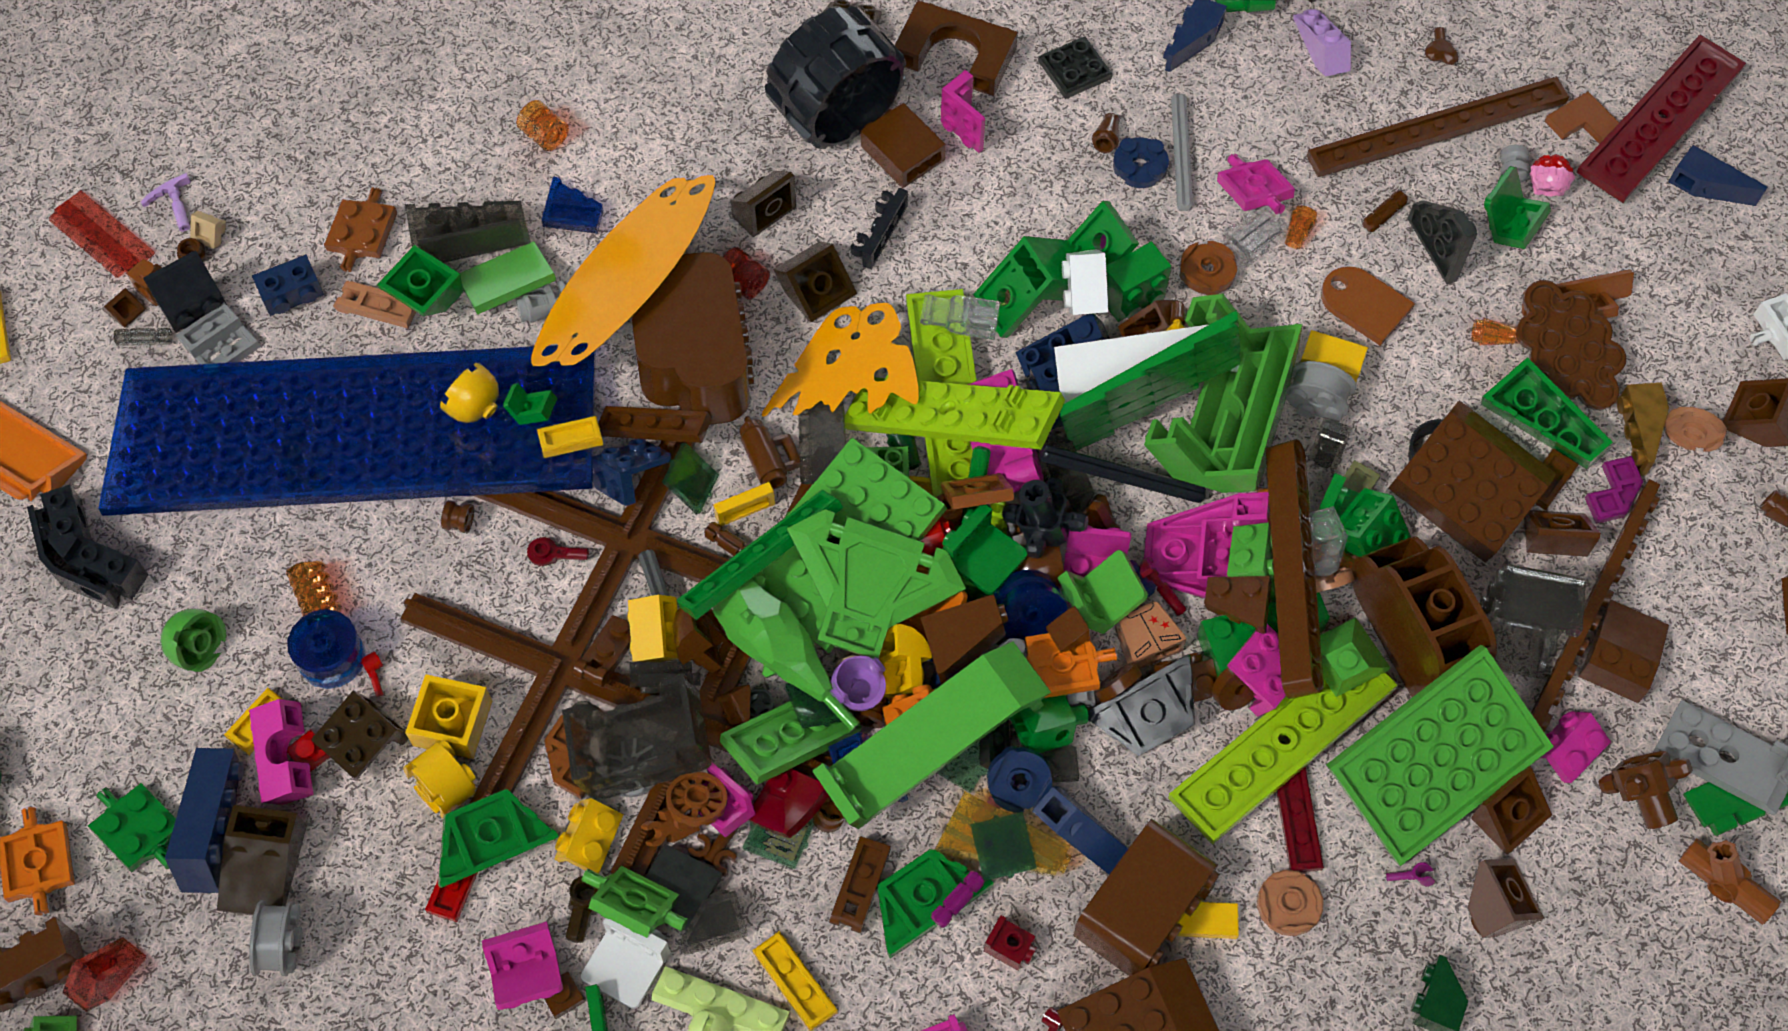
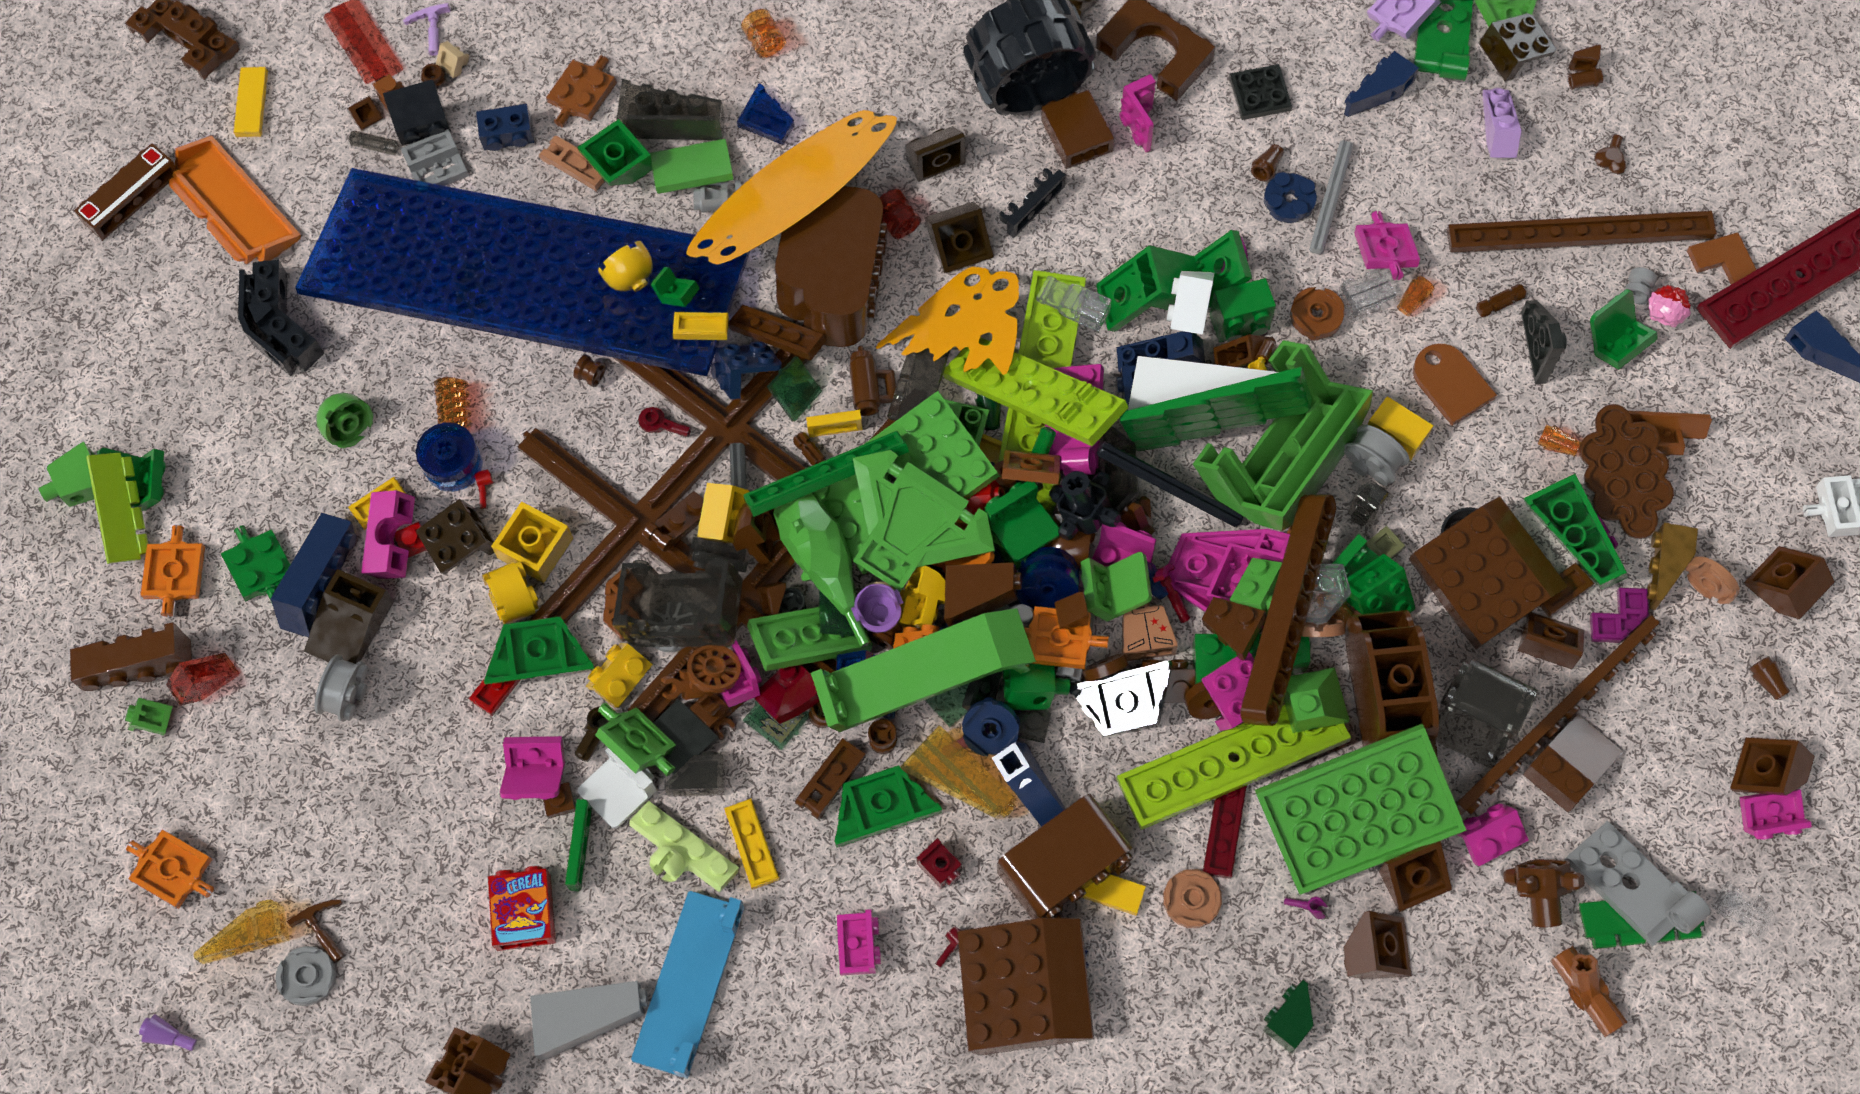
camera: 20 degrees right, 5 degrees up
(704, 845) = (710, 709): none -> reddish brown tile
(904, 815) = (882, 731): none -> reddish brown wheel
(957, 899) = (906, 814): magenta axle -> none
(1003, 846) = (957, 781): clear green piece -> none

